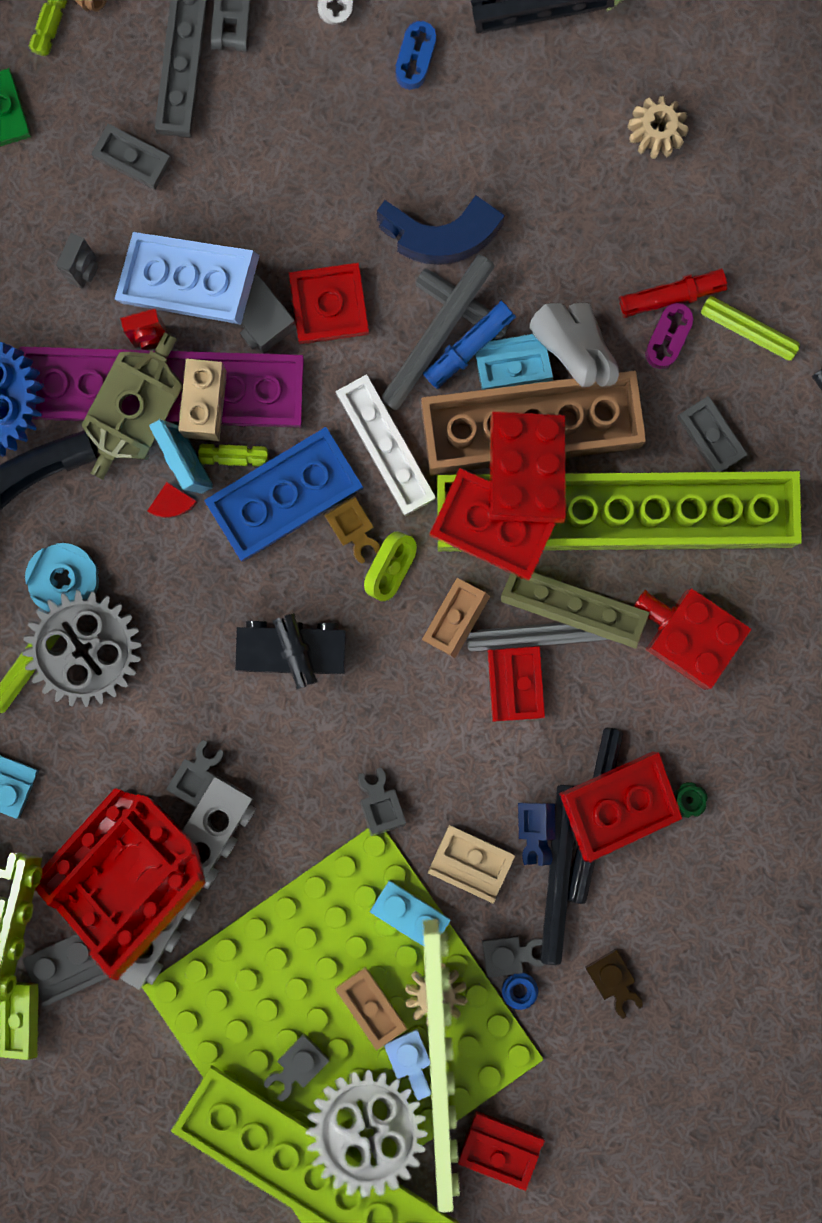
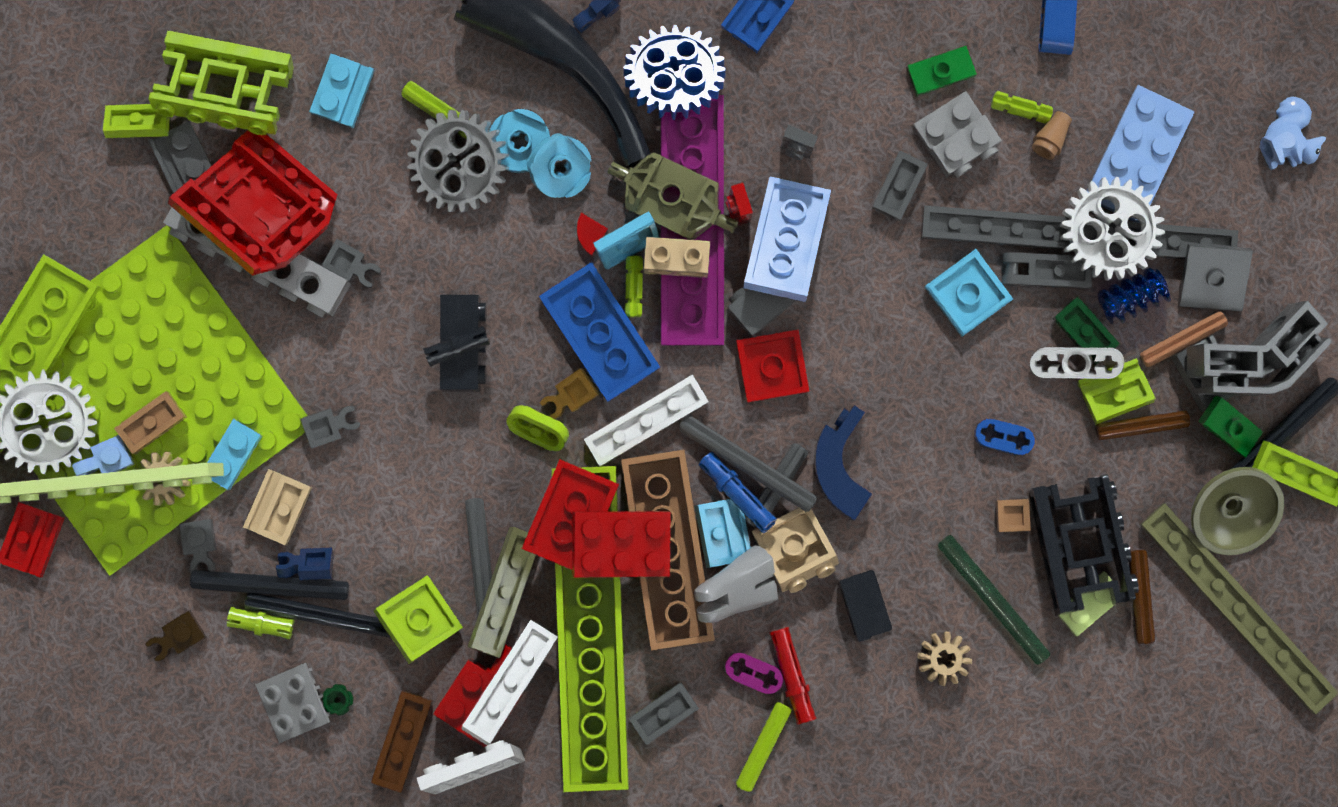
camera: 90 degrees right, 0 degrees up
(77, 91) = (957, 135): none -> light grey plate
(88, 550) = (577, 166): none -> medium azure plate
(254, 86) = (968, 292): none -> medium azure plate
(300, 1063) = (102, 362): dark grey plate -> none
(456, 618) = (493, 487): medium nougat plate -> none
(502, 48) = (1013, 515): none -> medium nougat plate
(516, 684) = (436, 542): red plate -> none
(520, 1002) = (158, 553): blue plate -> none
(534, 278) = (797, 549): none -> tan plate
(593, 73) = (994, 599): none -> clear green axle
(597, 213) = (865, 605): none -> black panel
(601, 888) = (260, 623): none -> lime pin
(603, 705) = (418, 619): none -> lime plate
(621, 806) = (329, 637): red plate -> none
(680, 599) = (509, 683): none -> white plate
(692, 850) = (293, 702): none -> light grey hinge
(738, 728) = (401, 741): none -> reddish brown plate
(773, 645) = (470, 767): none -> white plate

